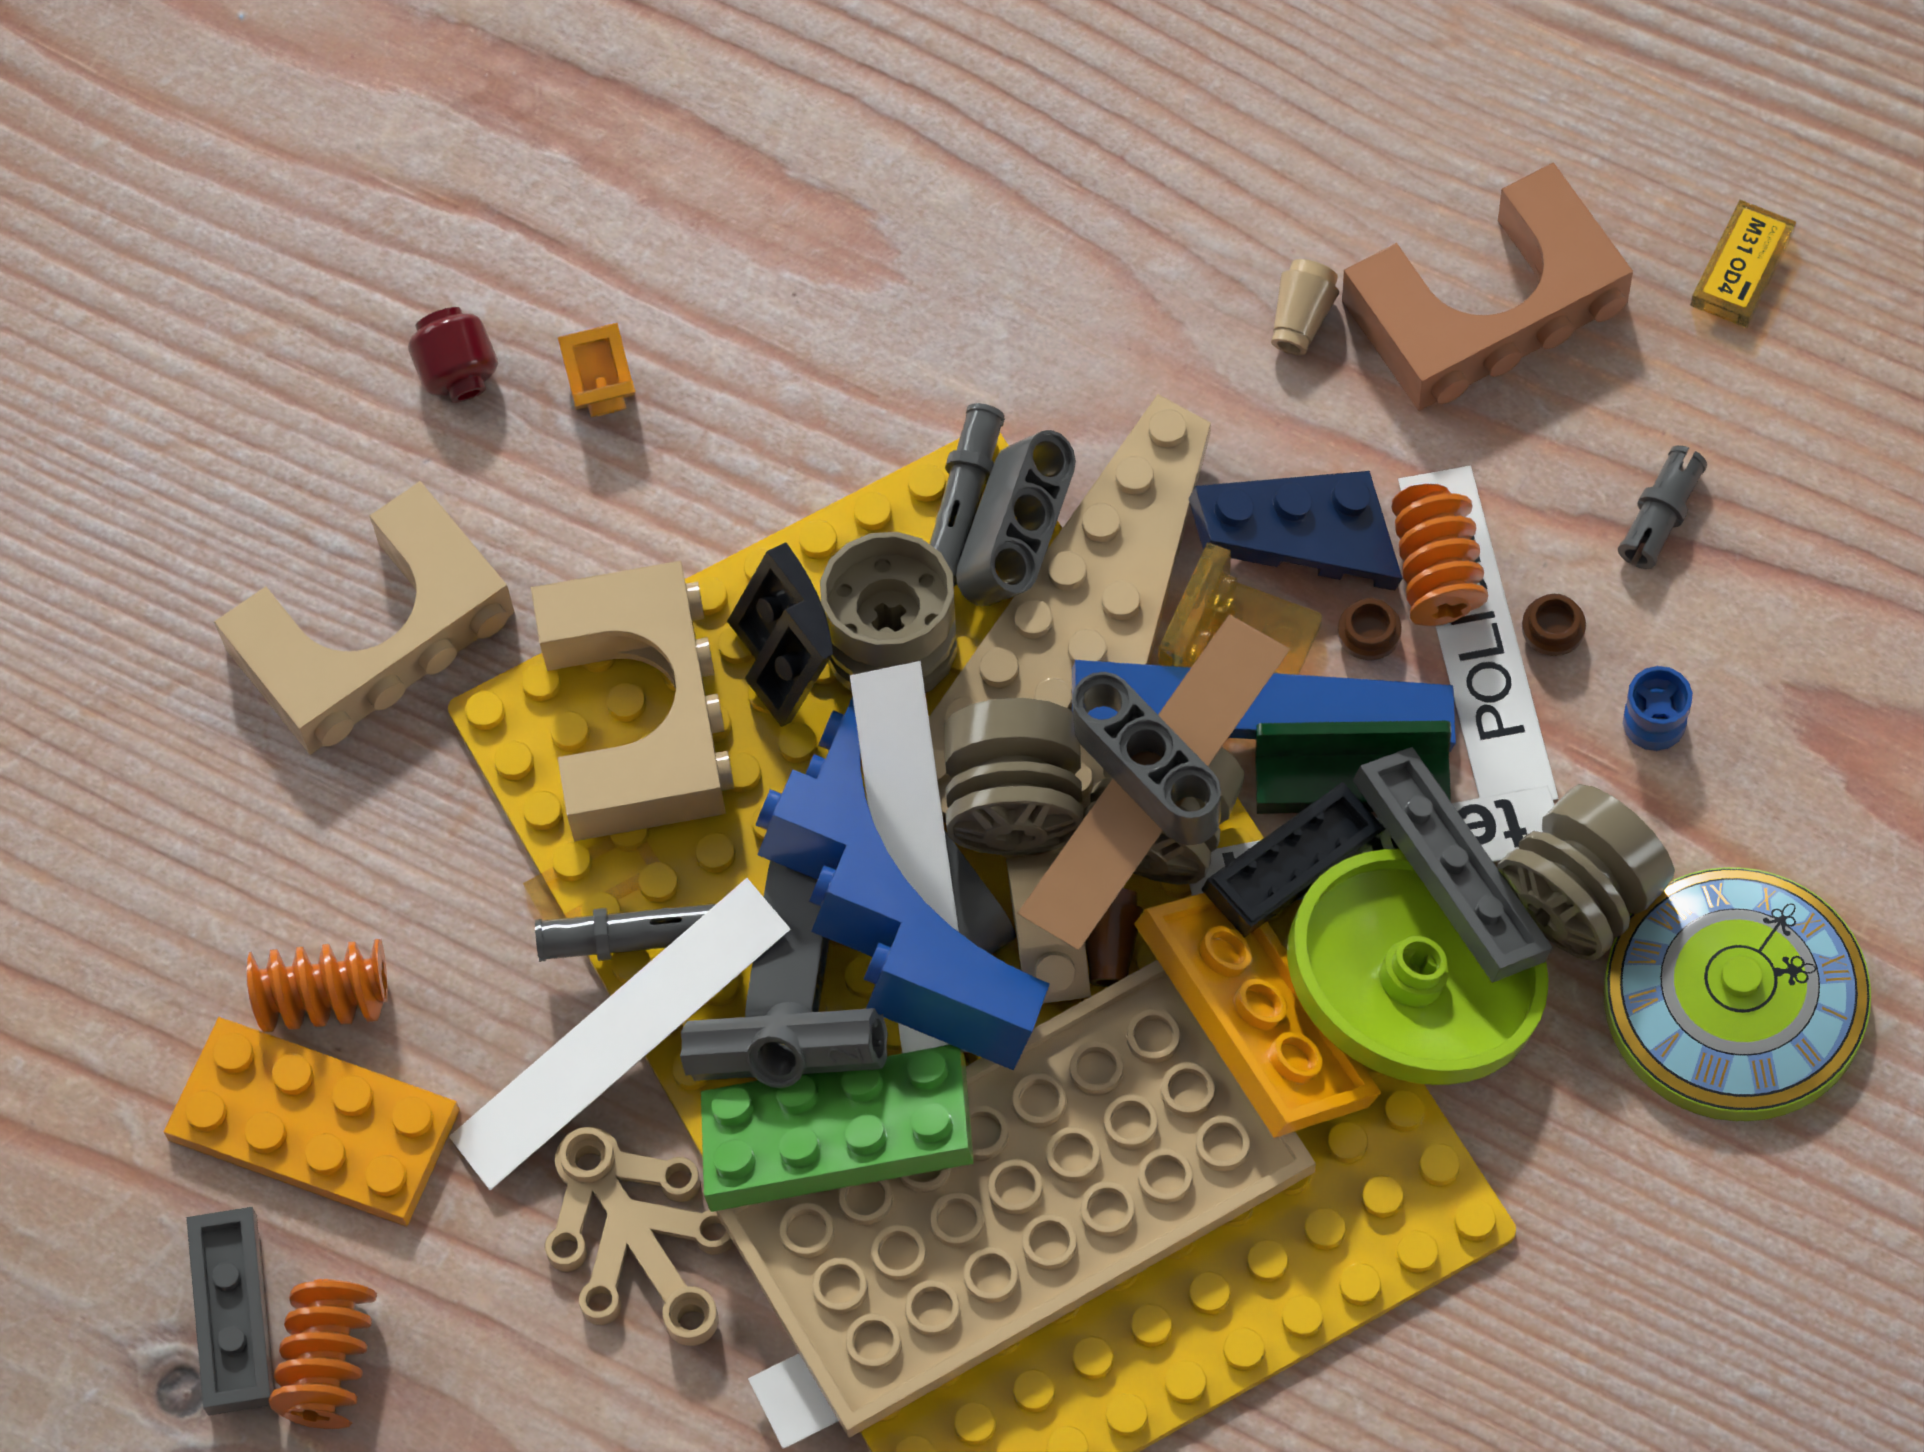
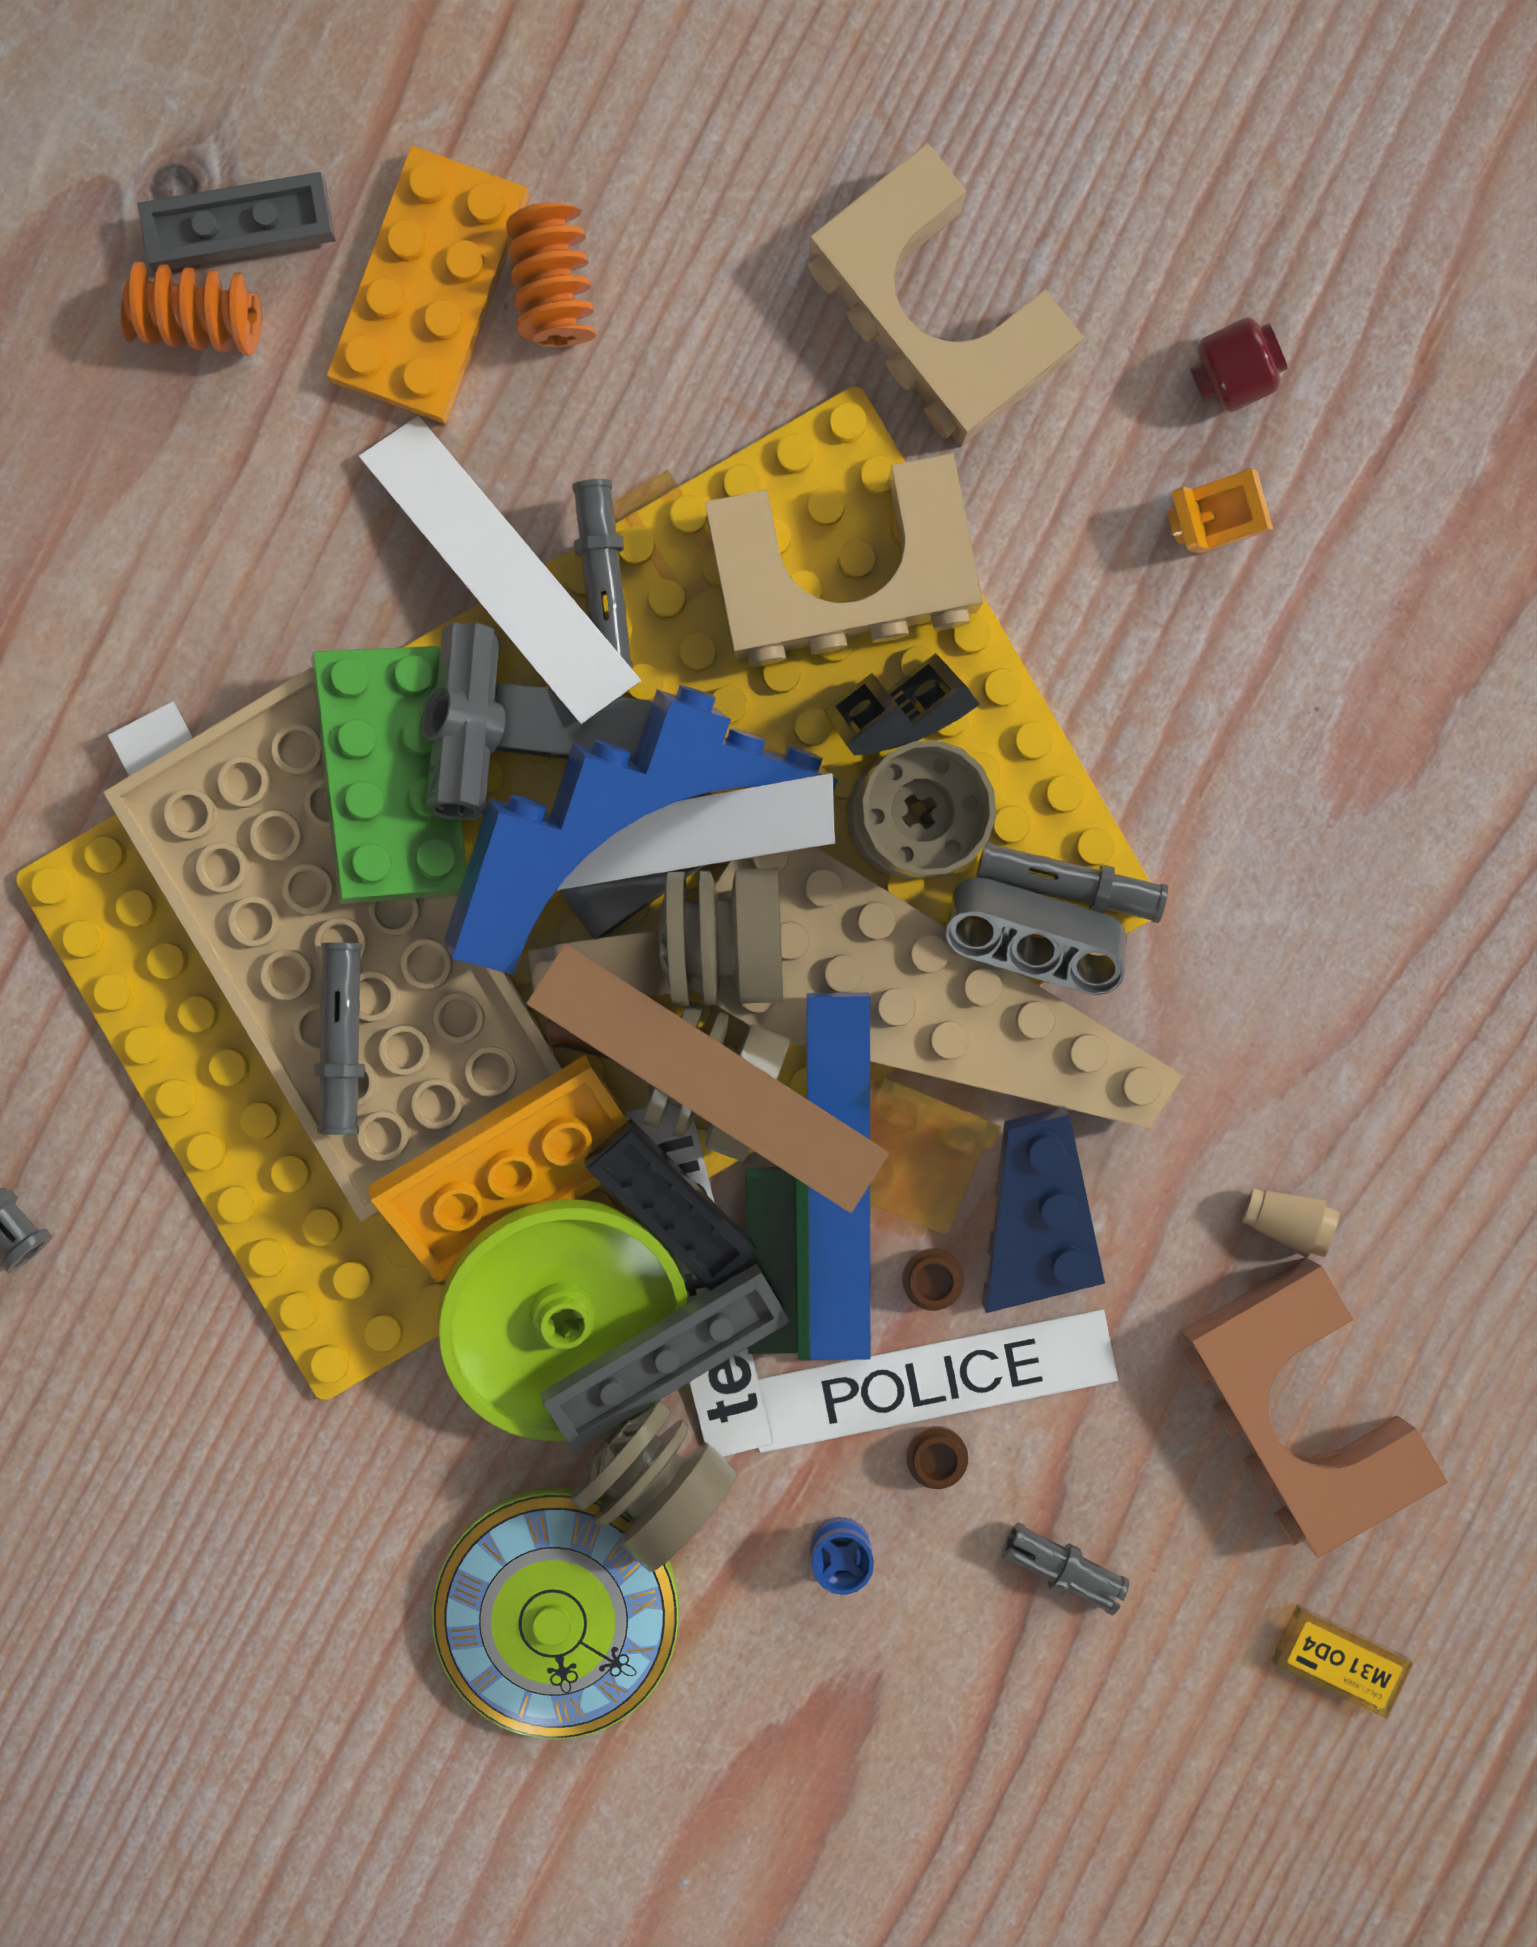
camera: 80 degrees right, 25 degrees up
(631, 1225) = (322, 587): tan plant -> none
(1117, 1171) = (339, 1039): none -> dark grey pin
(1138, 730) = (692, 1097): dark grey beam -> none
(1438, 554) = (1004, 1351): orange piece -> none

